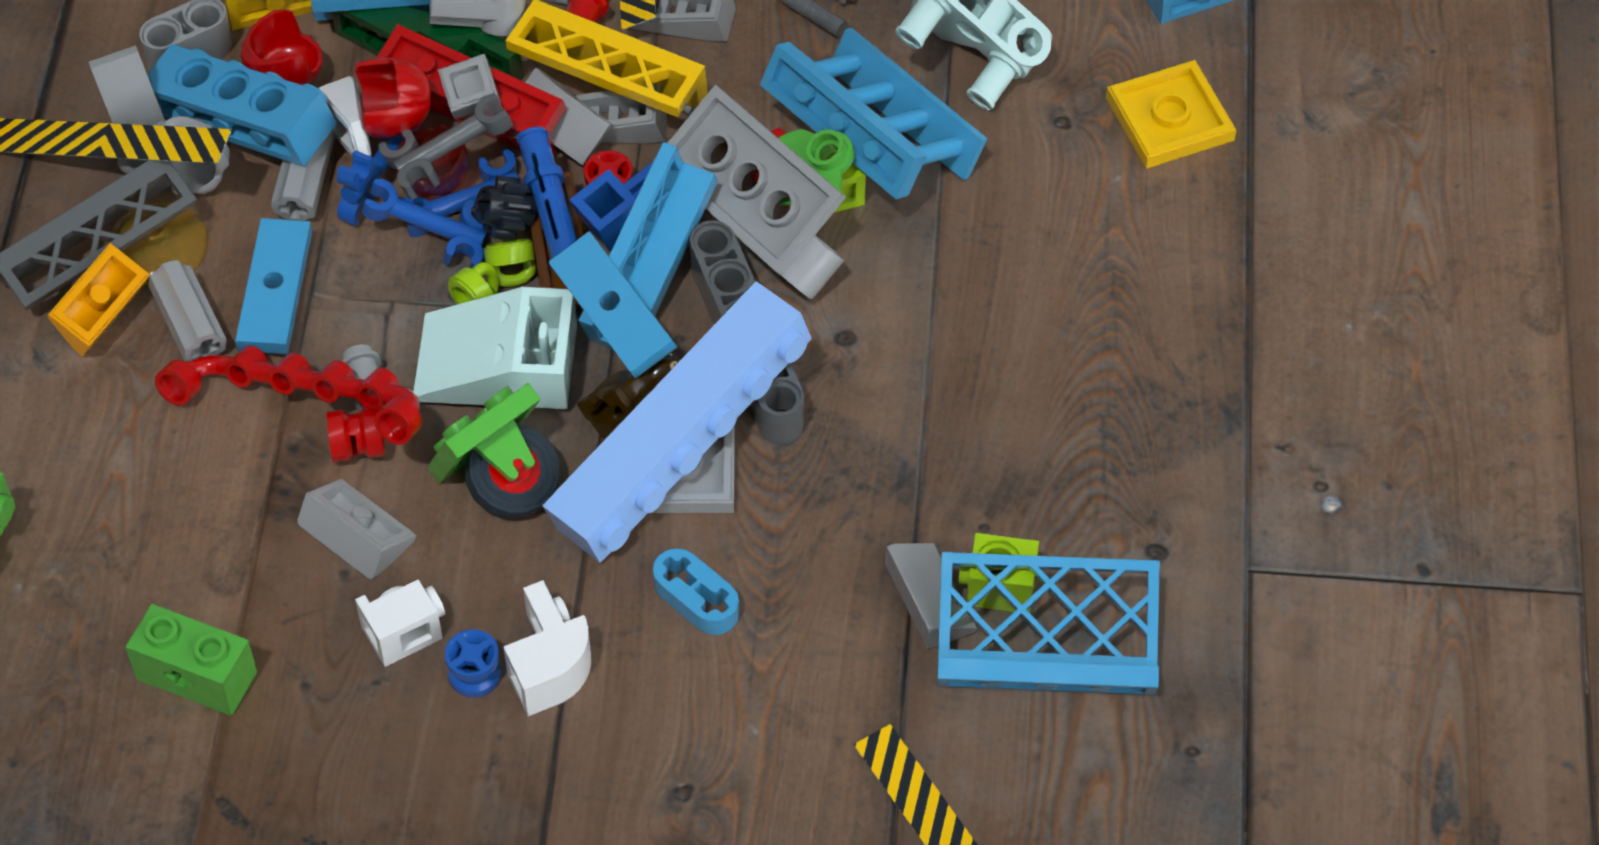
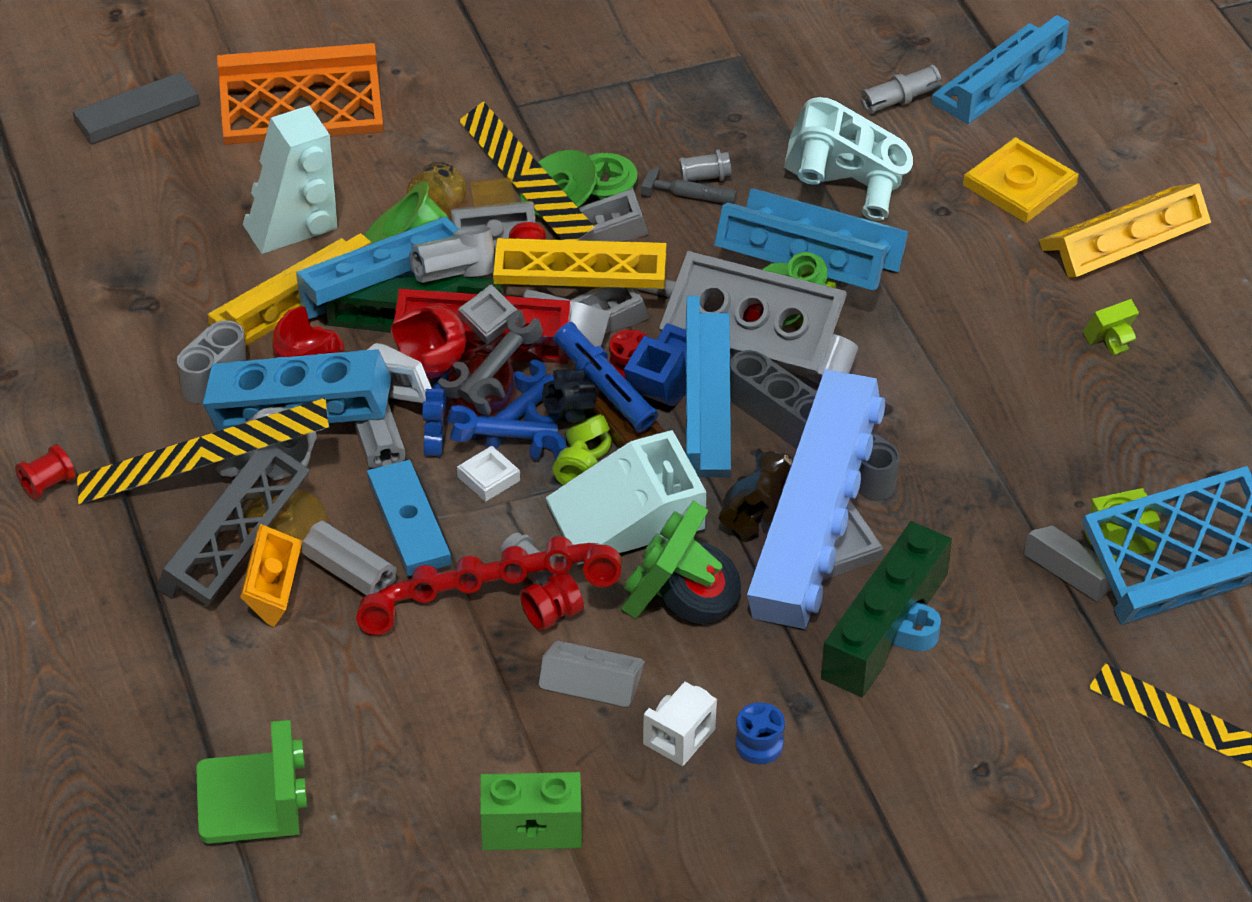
camera: 25 degrees left, 10 degrees down
(126, 88) = (199, 403): light grey slope -> none
(389, 264) = (488, 473): none -> white tile
(554, 660) = (819, 701): white brick -> none
(600, 285) = (697, 414): dark azure tile -> none
(639, 597) = (863, 636): none -> dark green arch
(1148, 330) = (1113, 327): none -> lime tile
(1248, 218) = (1129, 229): none -> yellow fence

